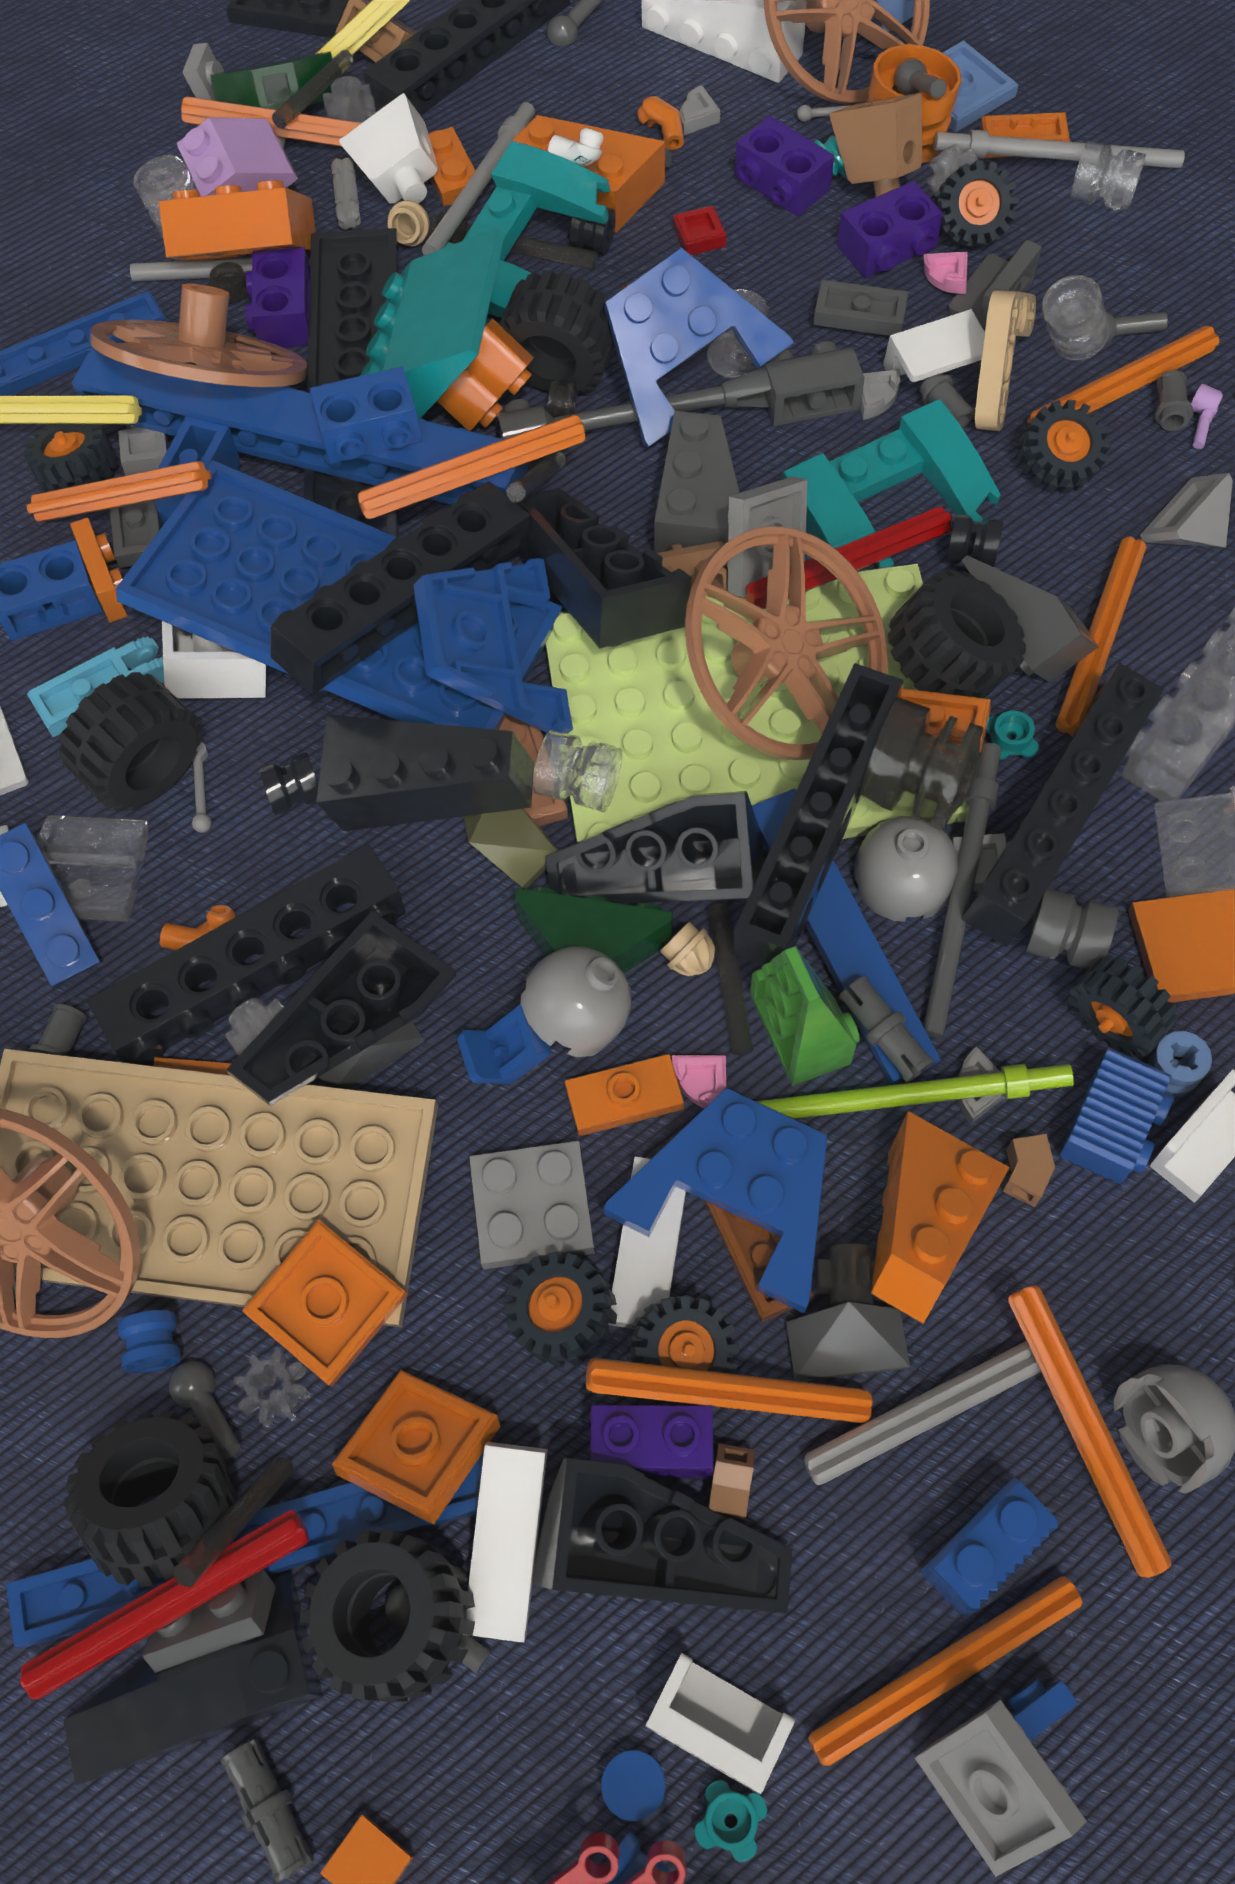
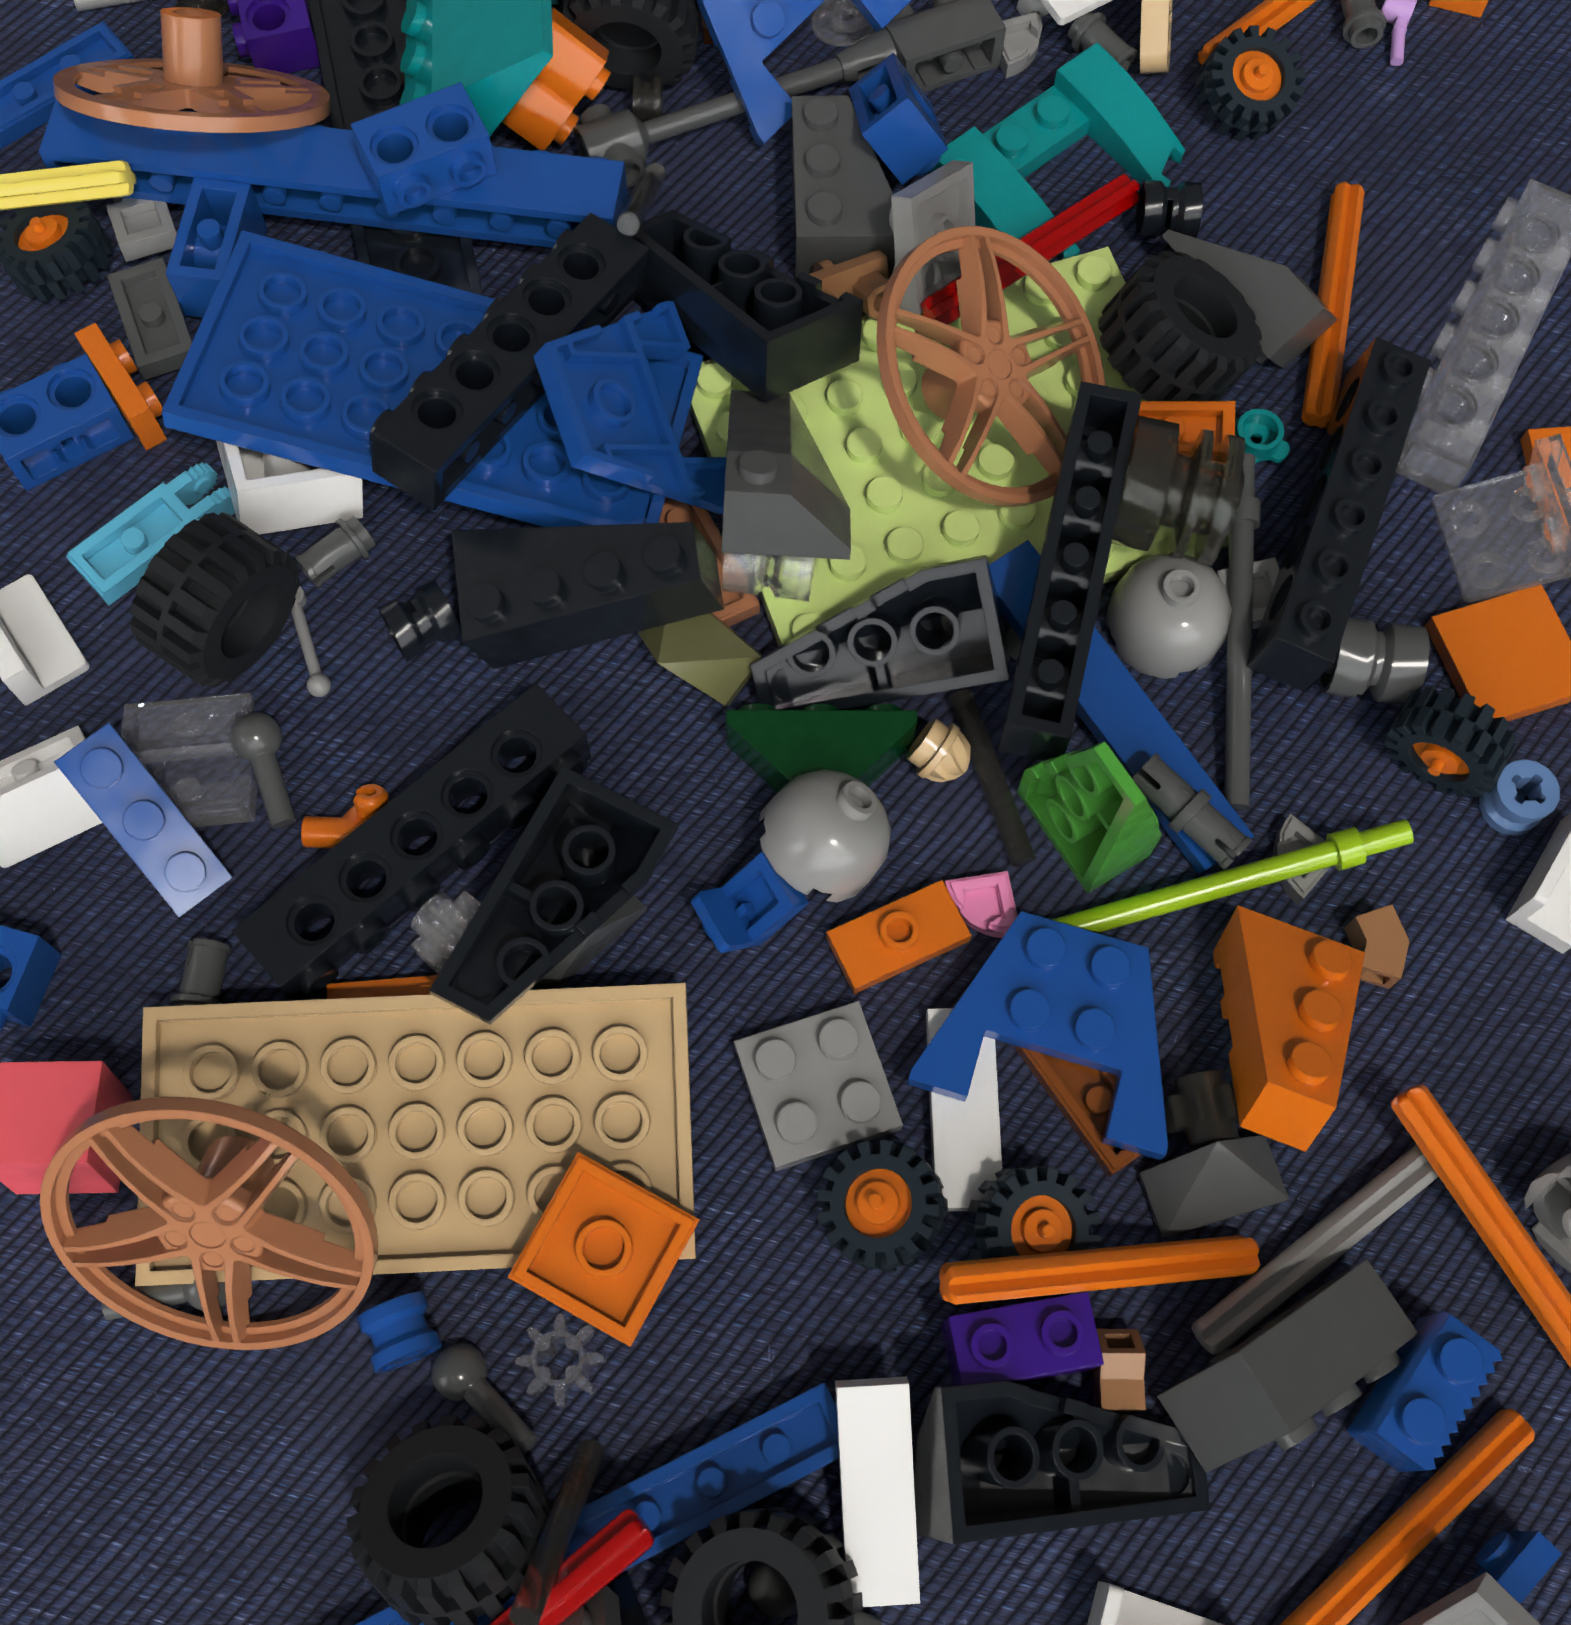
camera: 15 degrees left, 5 degrees up
(120, 491) = (131, 284): orange axle -> none
(144, 857) = (257, 740): none -> dark grey bar
(237, 720) = (336, 551): none -> dark grey pin
(416, 1446) = (749, 1399): orange tile -> none
(471, 467) = (566, 198): orange axle -> none
(590, 712) = (779, 486): none -> dark grey wedge
(758, 439) = (898, 120): none -> blue brick
(875, 1499) = (1291, 1370): none -> dark grey wedge
(1117, 1116) = (1465, 870): blue brick -> none
(1195, 514) = (1410, 144): light grey slope -> none

